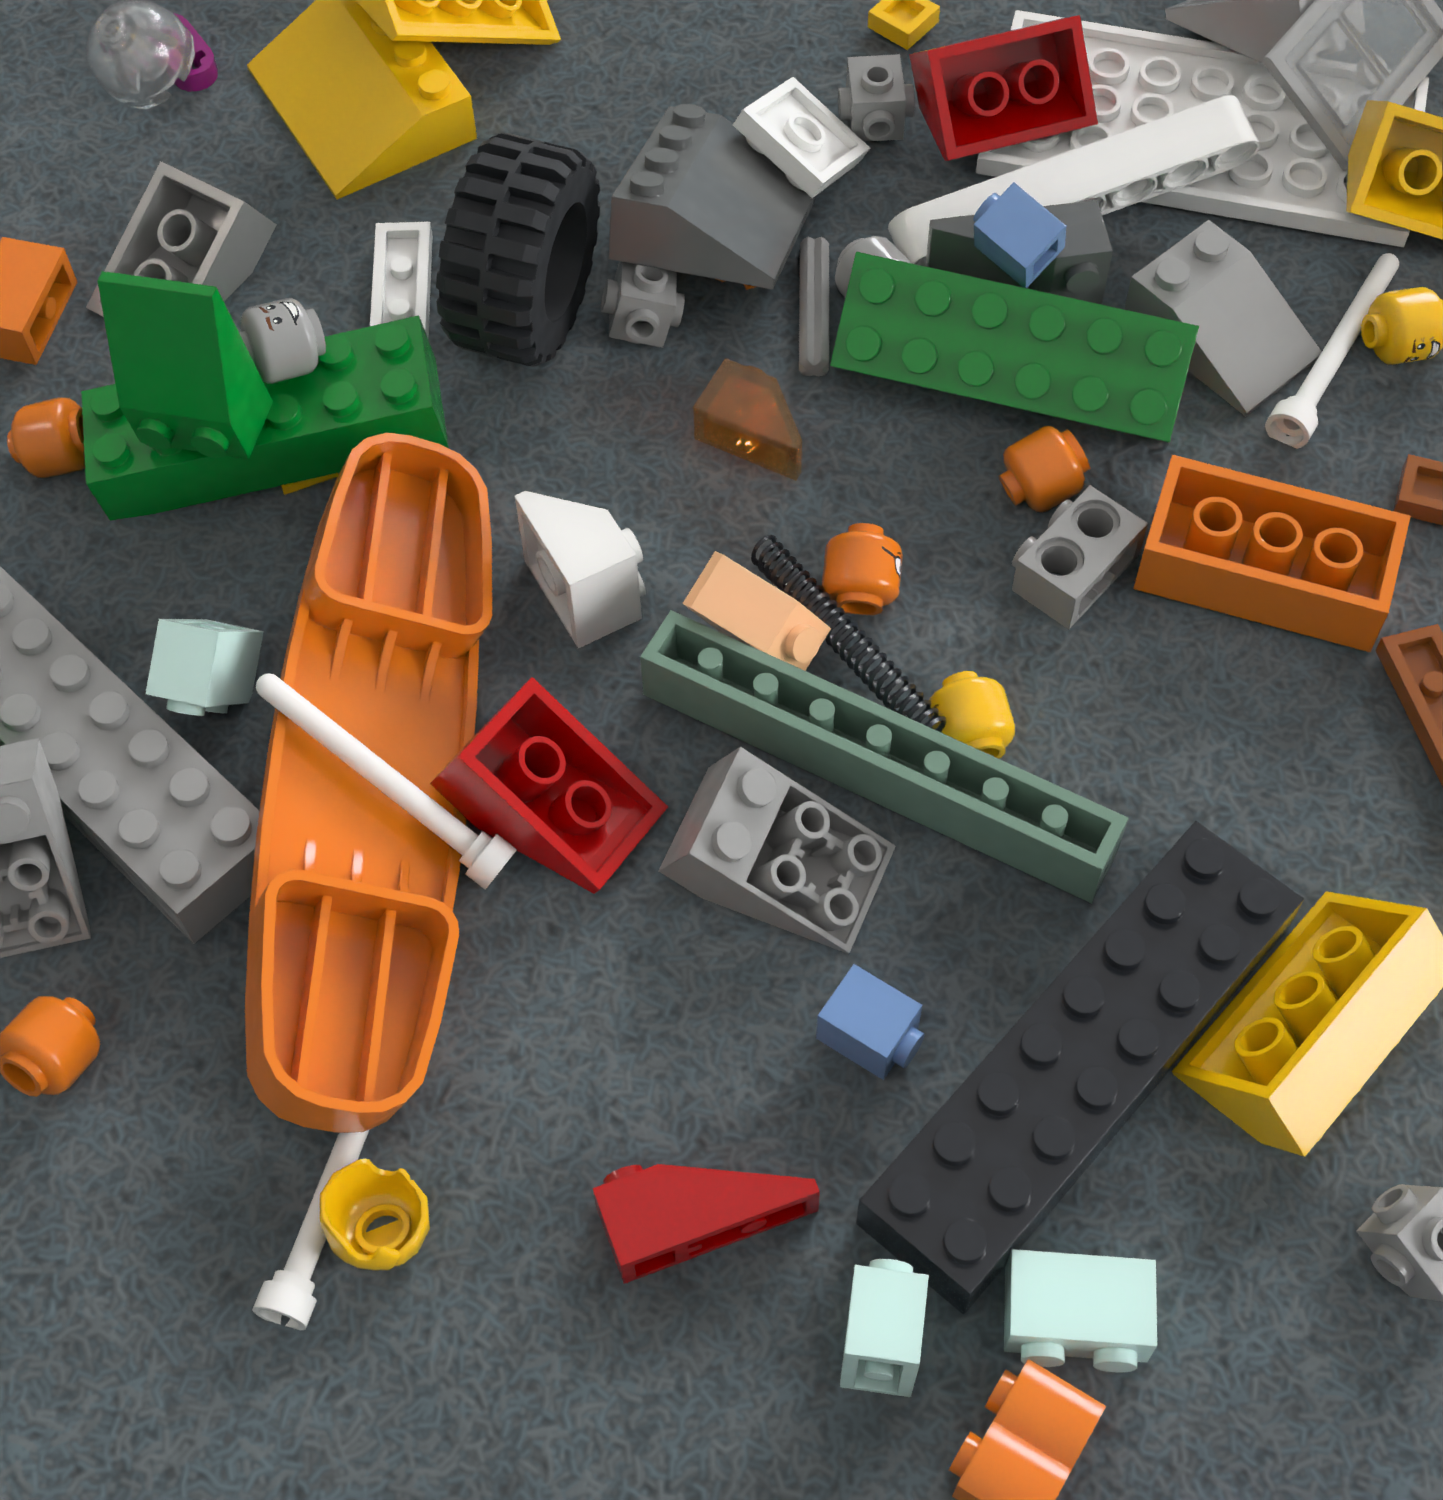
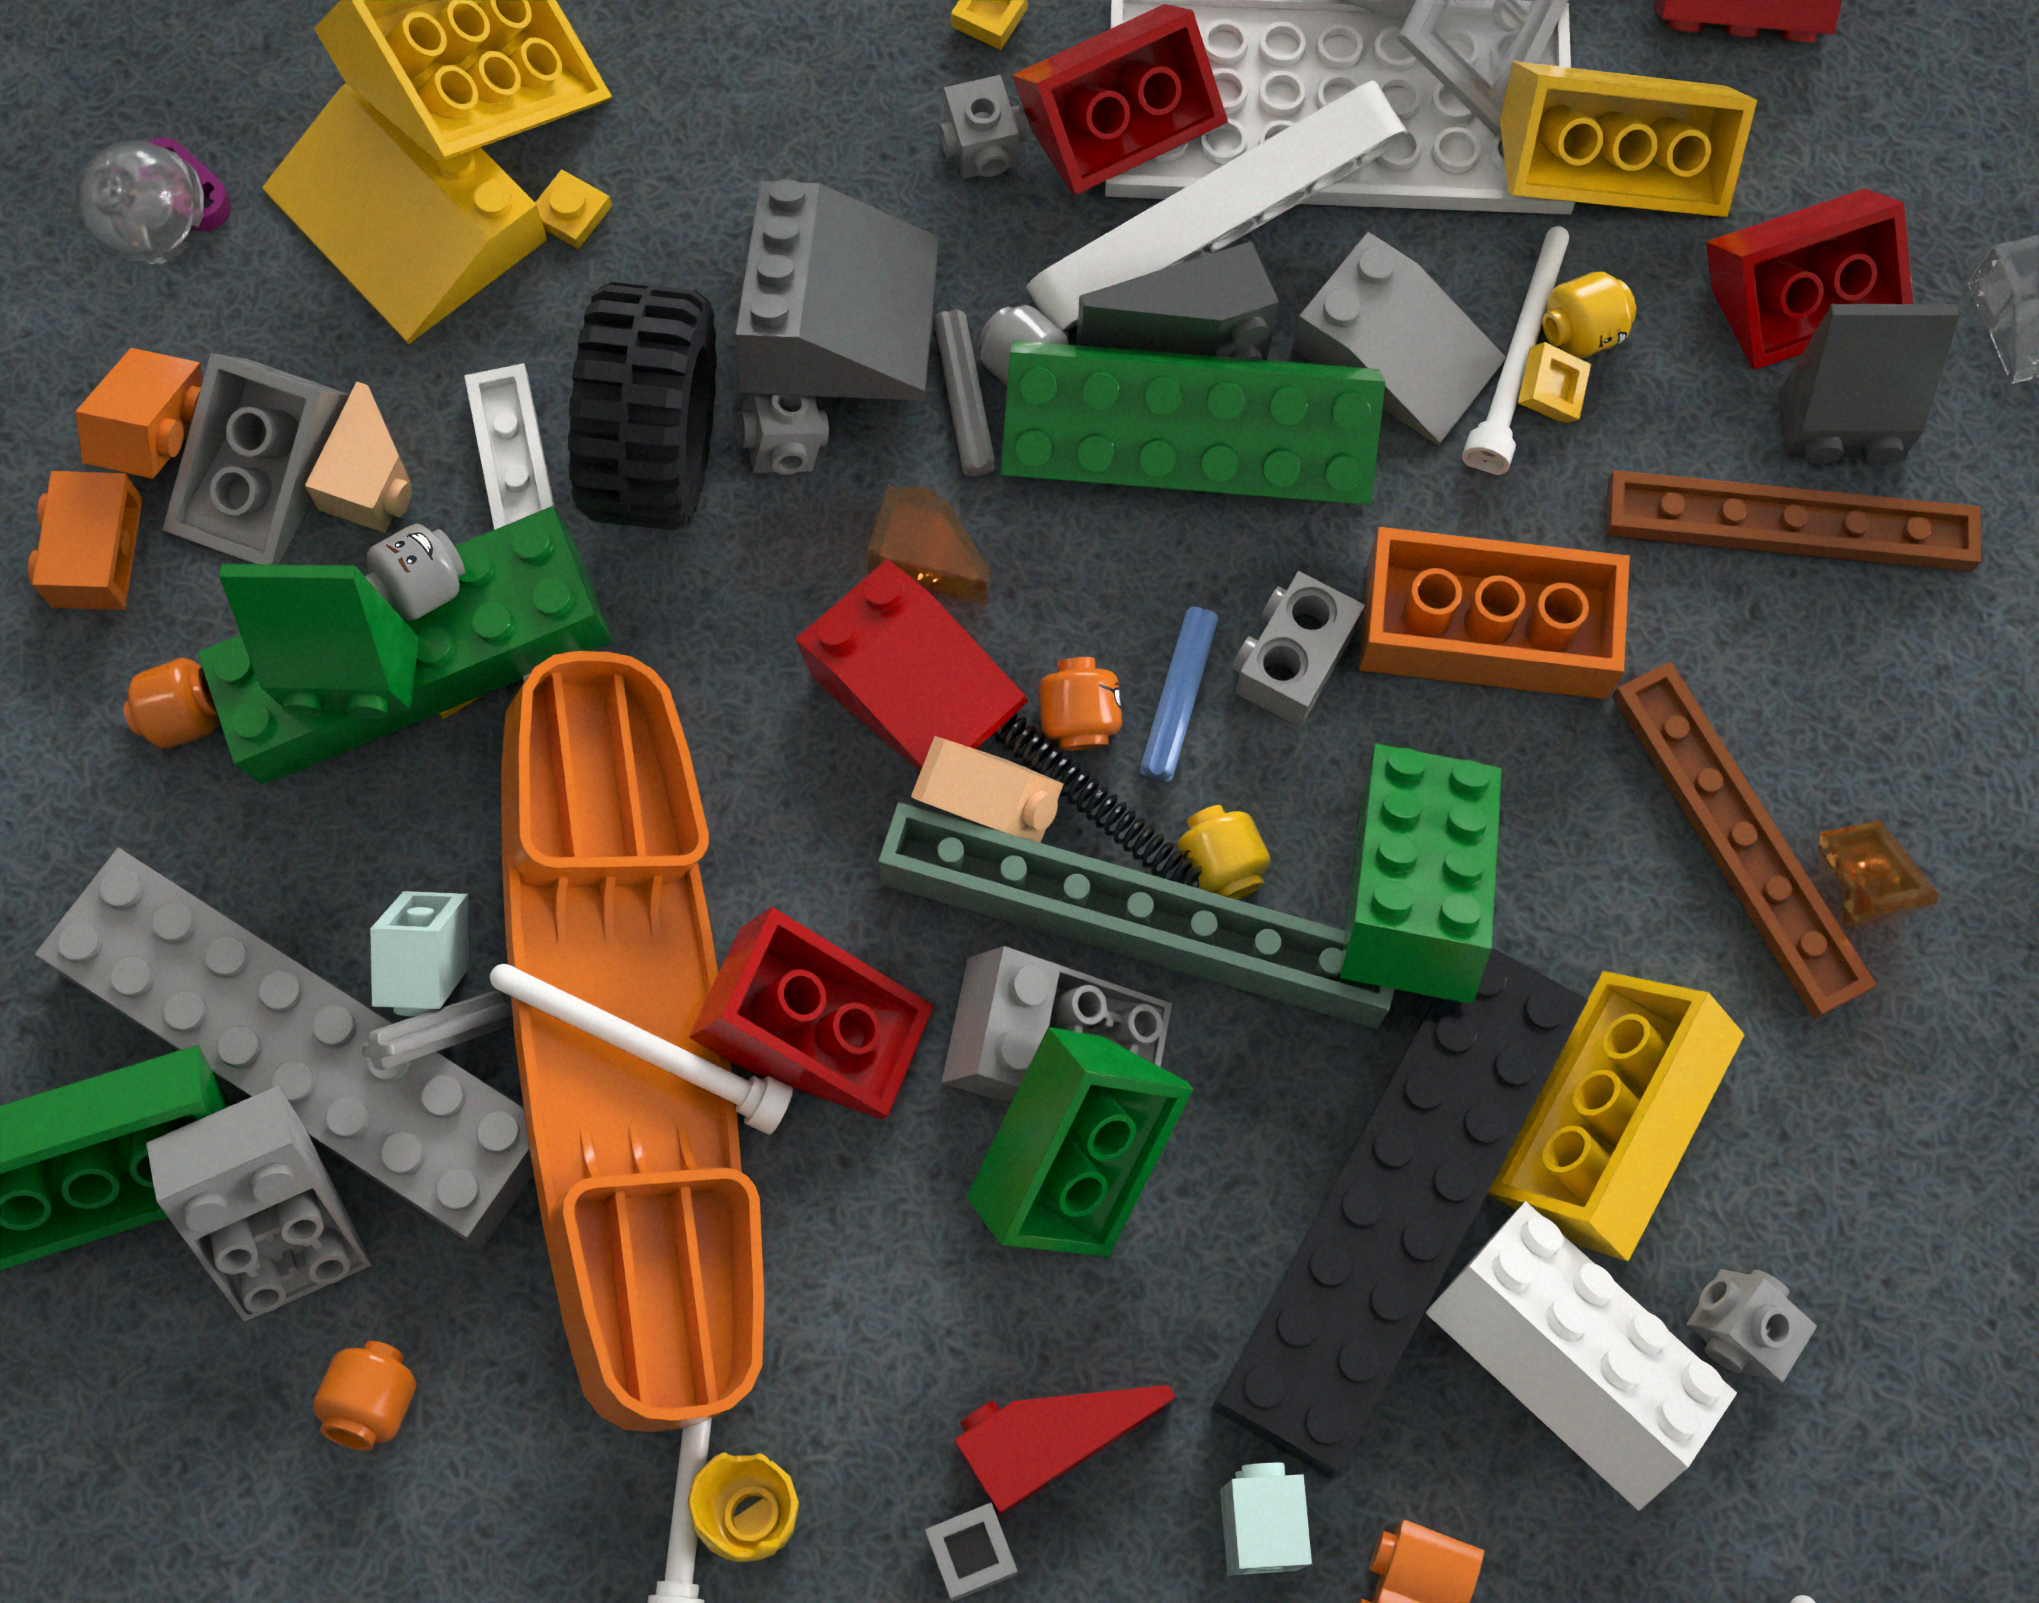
camera: 15 degrees left, 10 degrees up
(86, 205) = (139, 413): none -> orange brick
(197, 729) = (436, 1030): none -> light grey axle
(264, 269) = (360, 467): none -> light nougat slope
(504, 113) = (572, 208): none -> yellow plate
(581, 564) = (790, 760): white slope -> none
(584, 1301) = (971, 1552): none -> light grey brick
(706, 496) = (907, 667): none -> red slope
(773, 939) = (1076, 1145): none -> green slope
(801, 137) = (912, 193): white plate -> none
(871, 1023) = (1188, 1205): medium blue brick -> none
(957, 581) = (1179, 694): none -> medium blue axle
(1018, 234) = (1178, 306): medium blue brick -> none
(1044, 469) = (1245, 552): orange head -> none
(1080, 1309) = (1442, 1456): light aqua brick -> none
(1156, 754) = (1423, 874): none -> green brick
(1241, 1231) = (1583, 1356): none -> white brick
(1364, 376) = (1554, 383): none -> yellow plate

